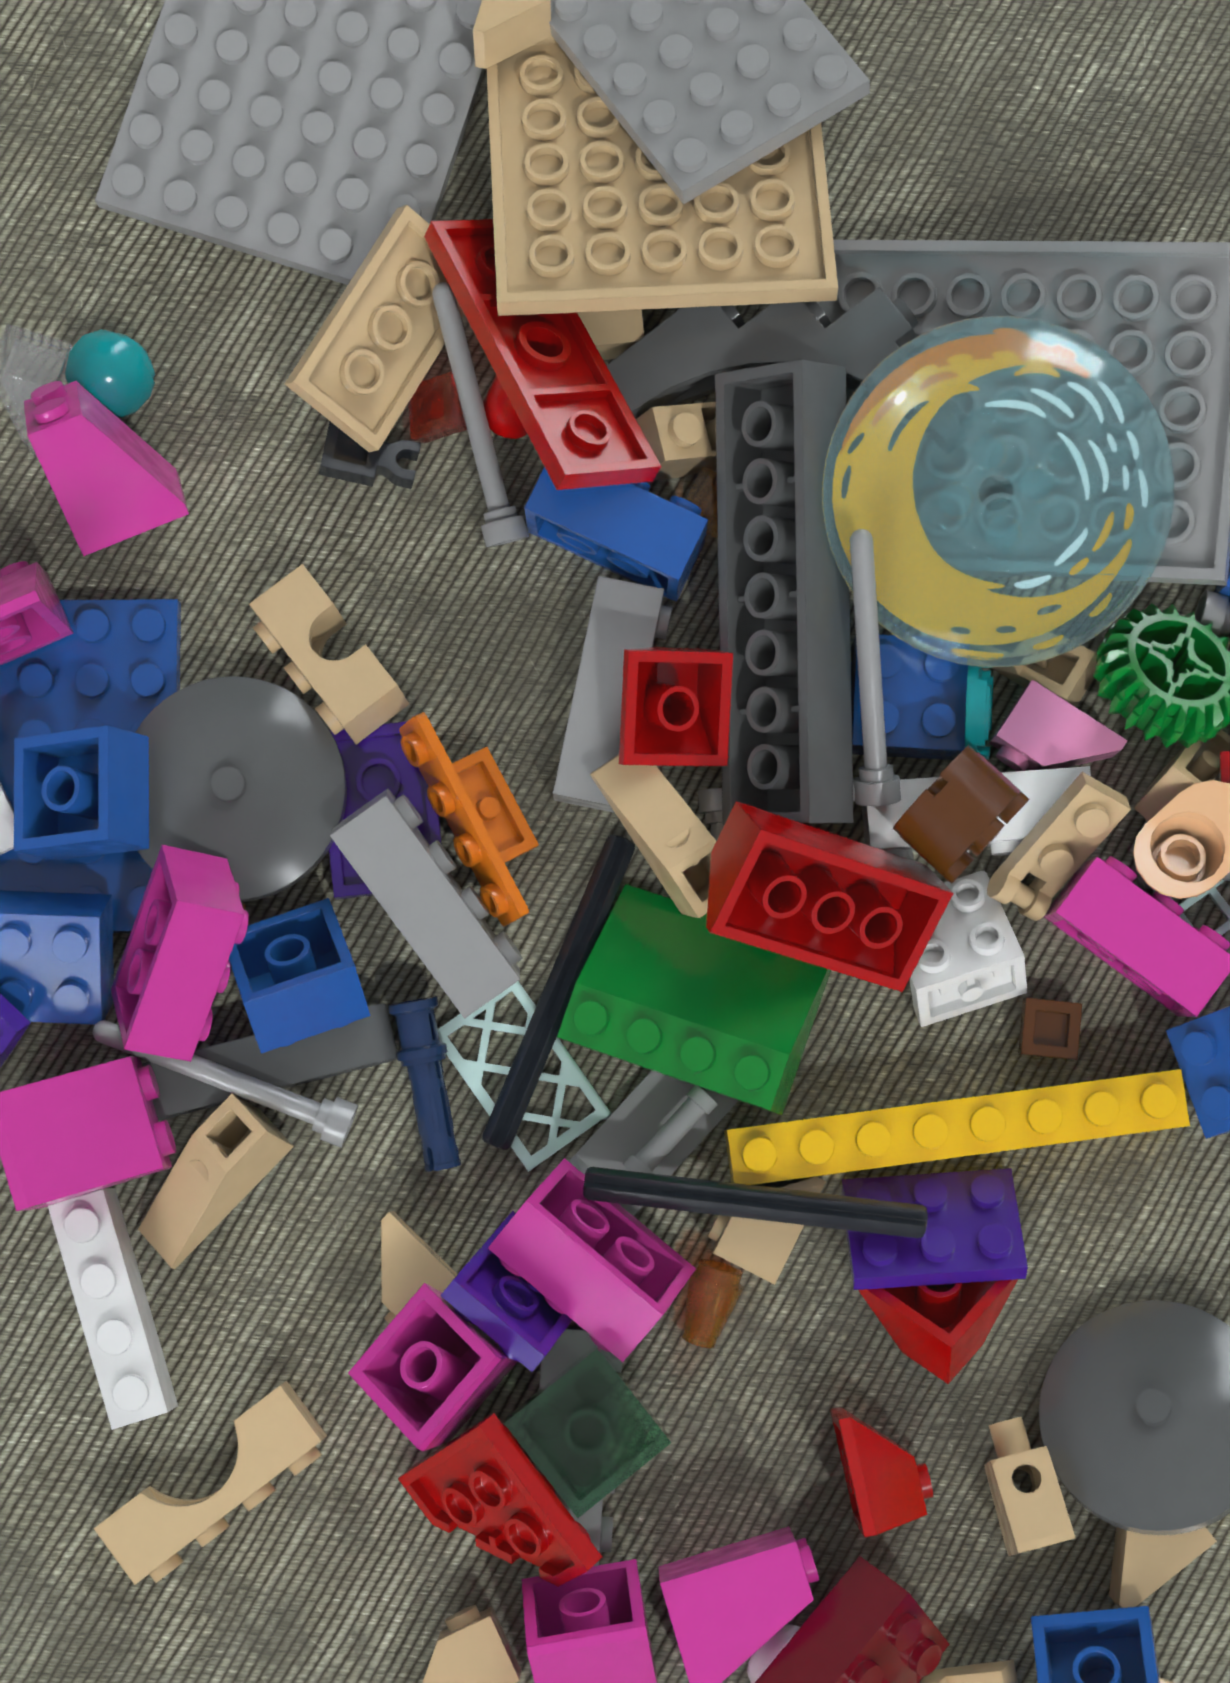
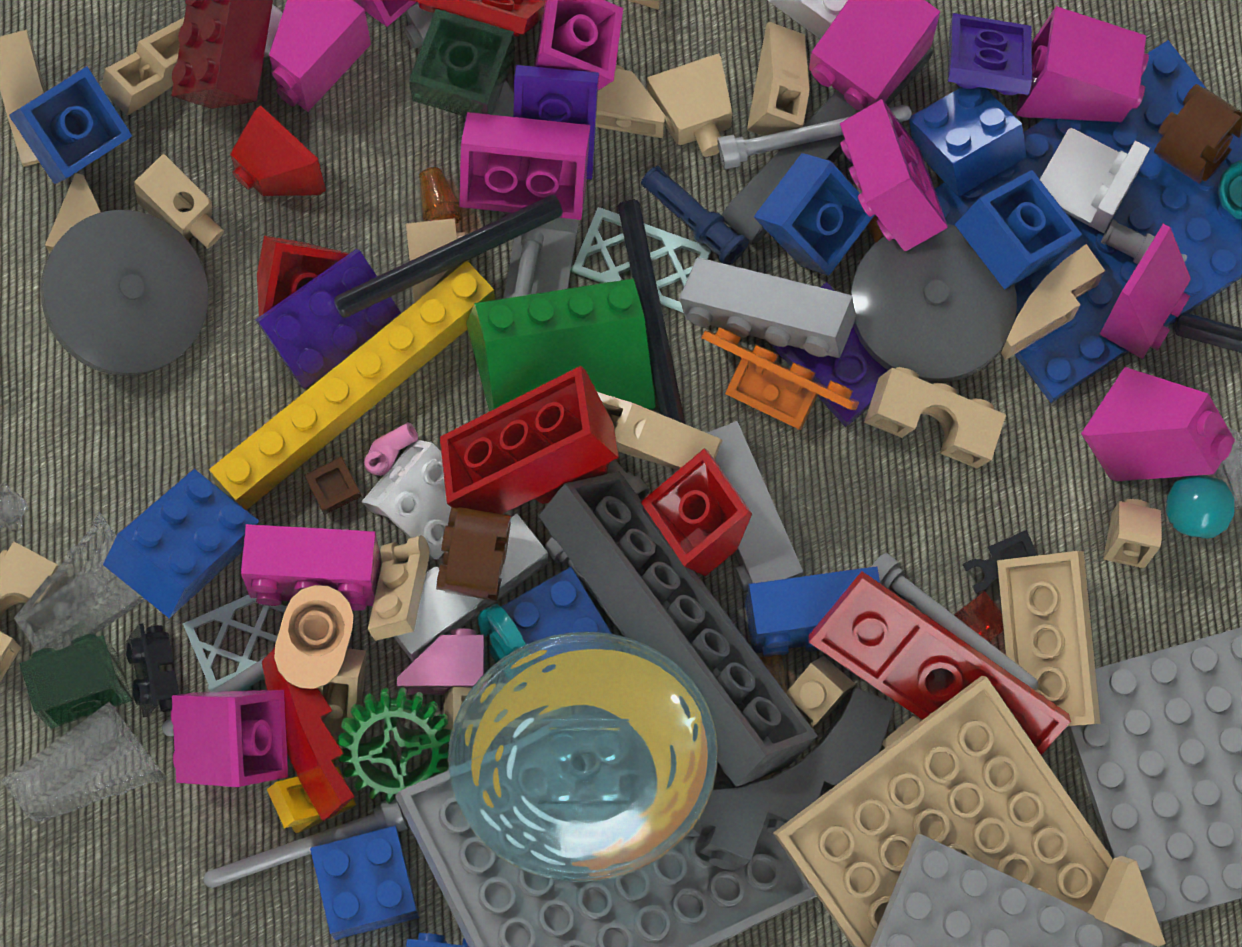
camera: 145 degrees right, 10 degrees down
(102, 696) = (1054, 300): none -> tan slope
(204, 387) = (1133, 533): none -> tan slope
(331, 1220) = (694, 102): none -> tan torso
(876, 780) = (539, 547): light grey piece -> none
(961, 1034) = (387, 447): none -> bright pink arm

